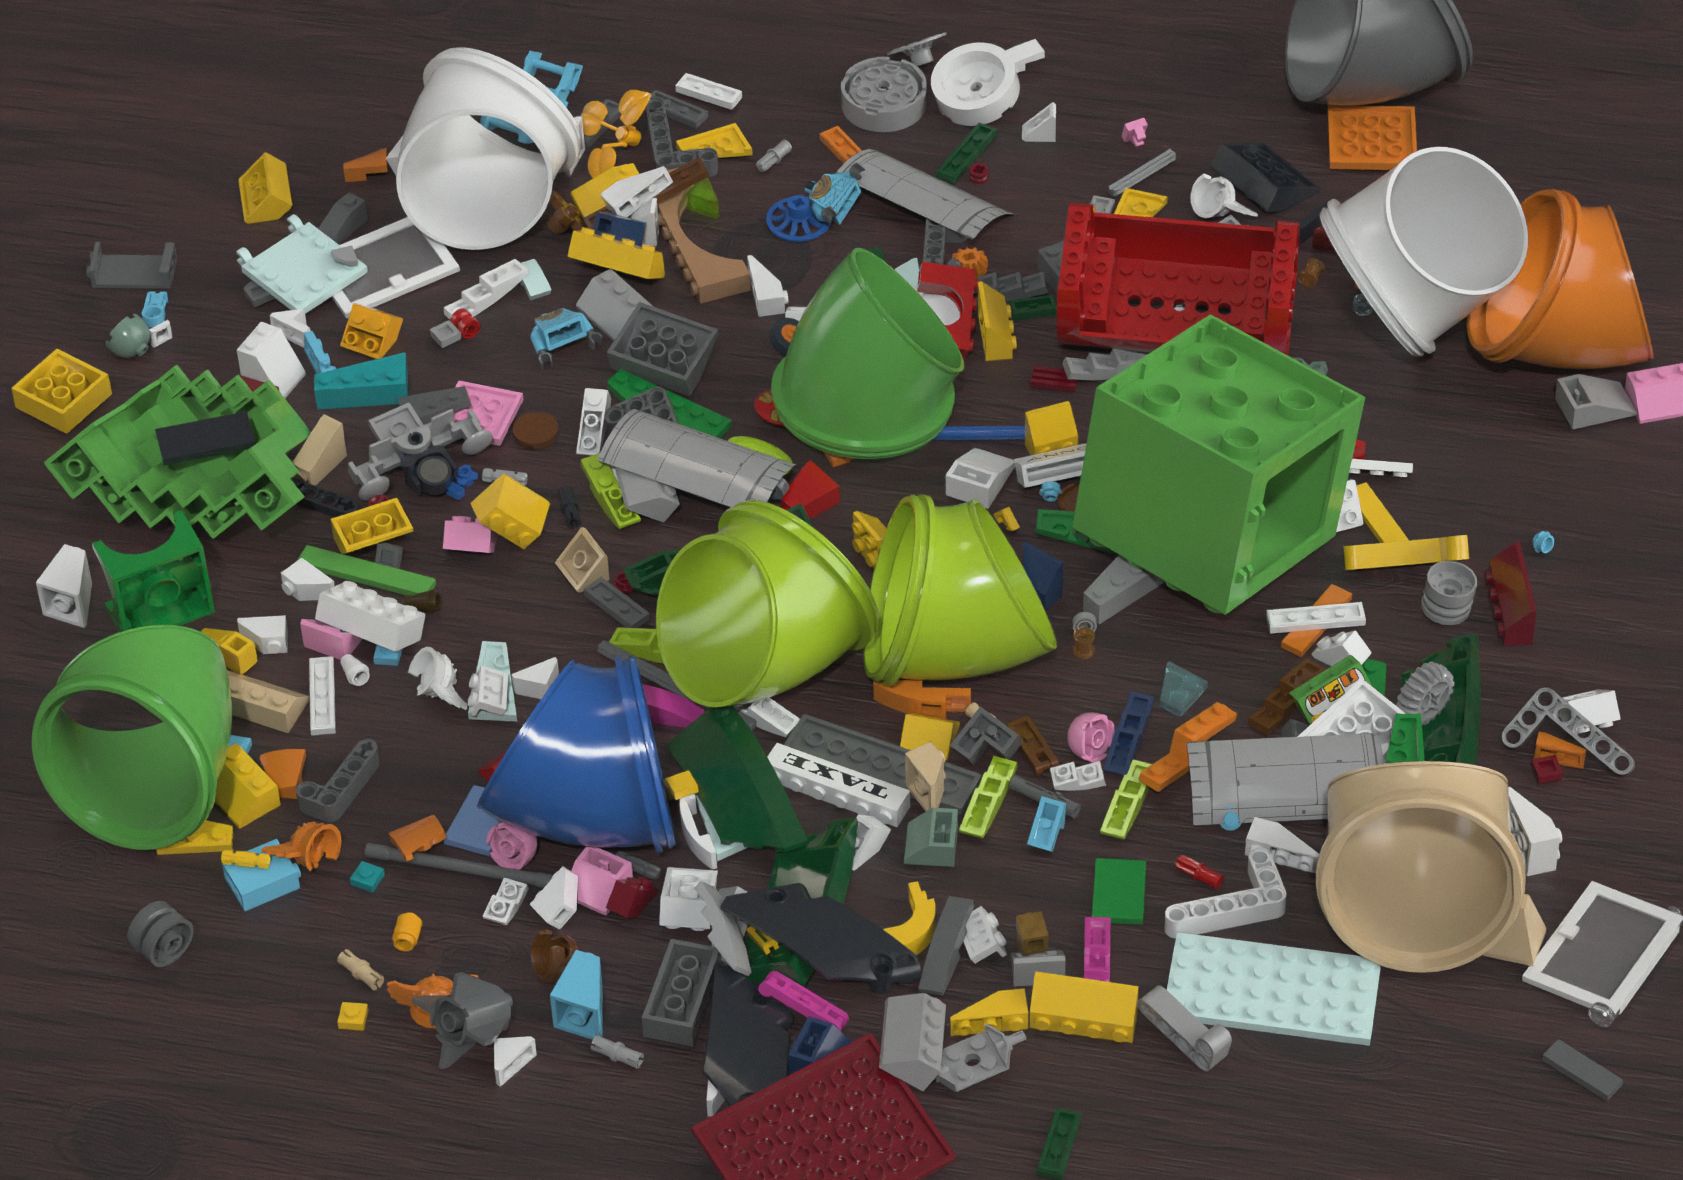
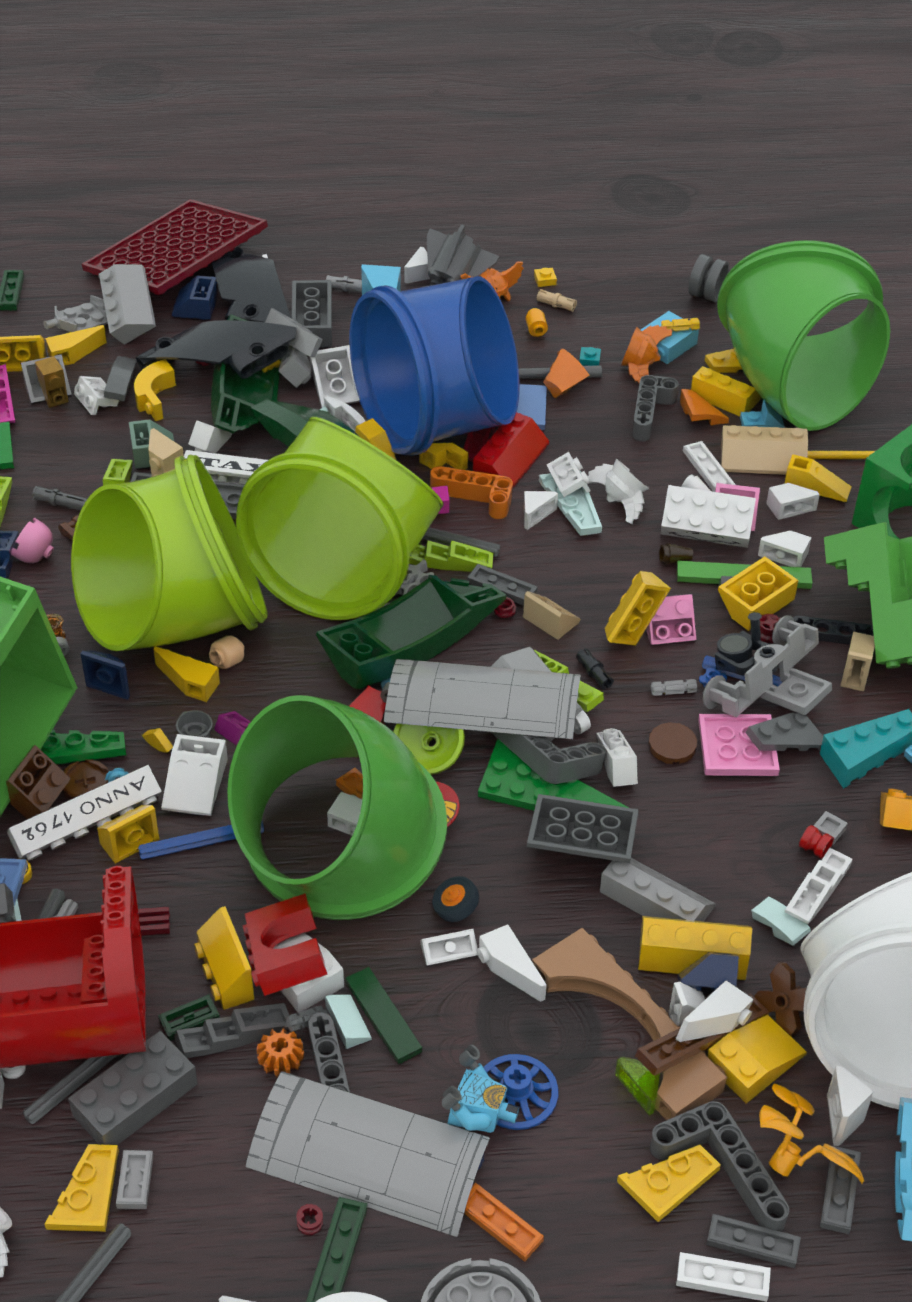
camera: 160 degrees right, 0 degrees up
(559, 329) = (708, 848): medium azure torso -> none
(773, 156) = (587, 1180): light grey axle -> none
(802, 999) = (218, 314): dark pink plate -> none
(867, 536) = (277, 673): yellow slope -> none
(1047, 822) = (56, 474): medium azure slope -> none
(1072, 778) = (50, 517): white slope -> none

